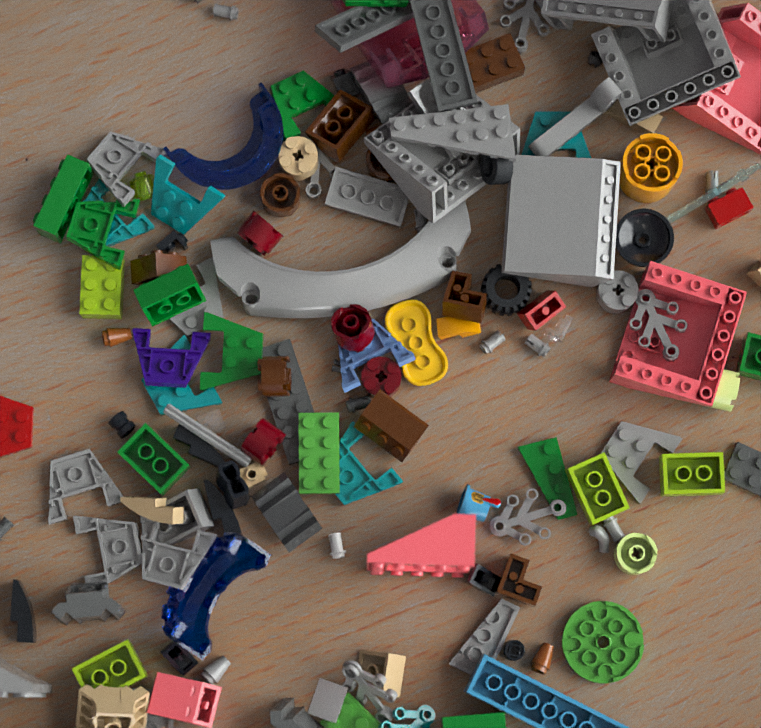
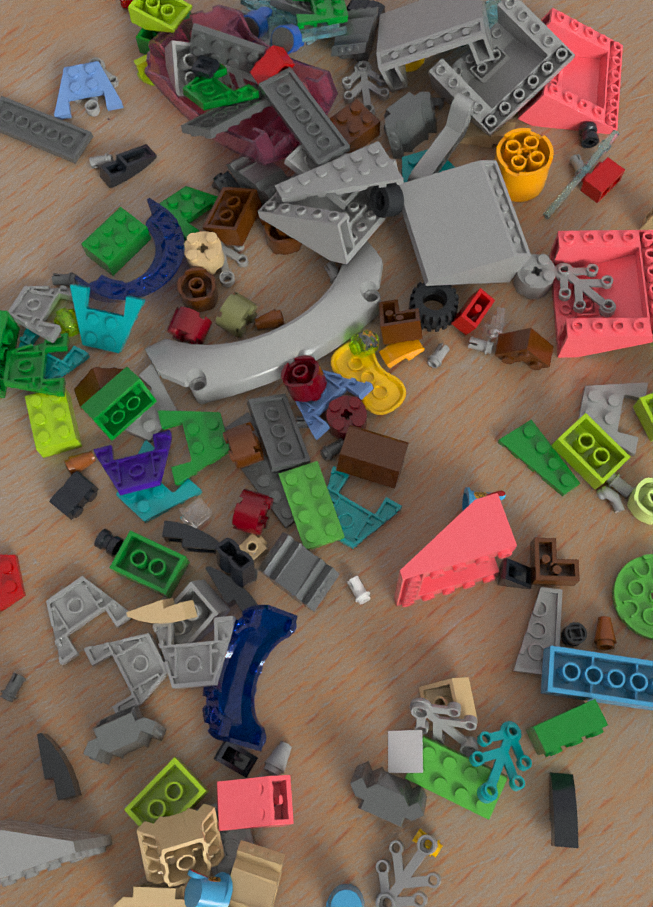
camera: 10 degrees left, 10 degrees down
(102, 368) = (74, 495): none -> black brick
(152, 136) = (64, 279): none -> dark grey pin
(168, 243) = (109, 359): black bracket -> none
(207, 435) = (195, 523): light grey axle -> none
(215, 112) = (116, 241): none -> green brick
(251, 26) = (127, 165): none -> black slope
(310, 235) = (236, 314): none -> olive brick
(312, 370) = (278, 432): none -> dark grey plate
(344, 250) = (272, 319): none -> dark orange cone
(367, 197) = (278, 268): light grey plate -> none
(423, 309) = (364, 343): none -> clear neon green head
(524, 518) = (532, 503): light grey plant -> none
(555, 79) = (409, 122): none -> dark grey slope
(575, 366) = (524, 346): none -> reddish brown brick
(647, 225) = (542, 216): black dish -> none
(736, 151) = (588, 135): none -> black wheel

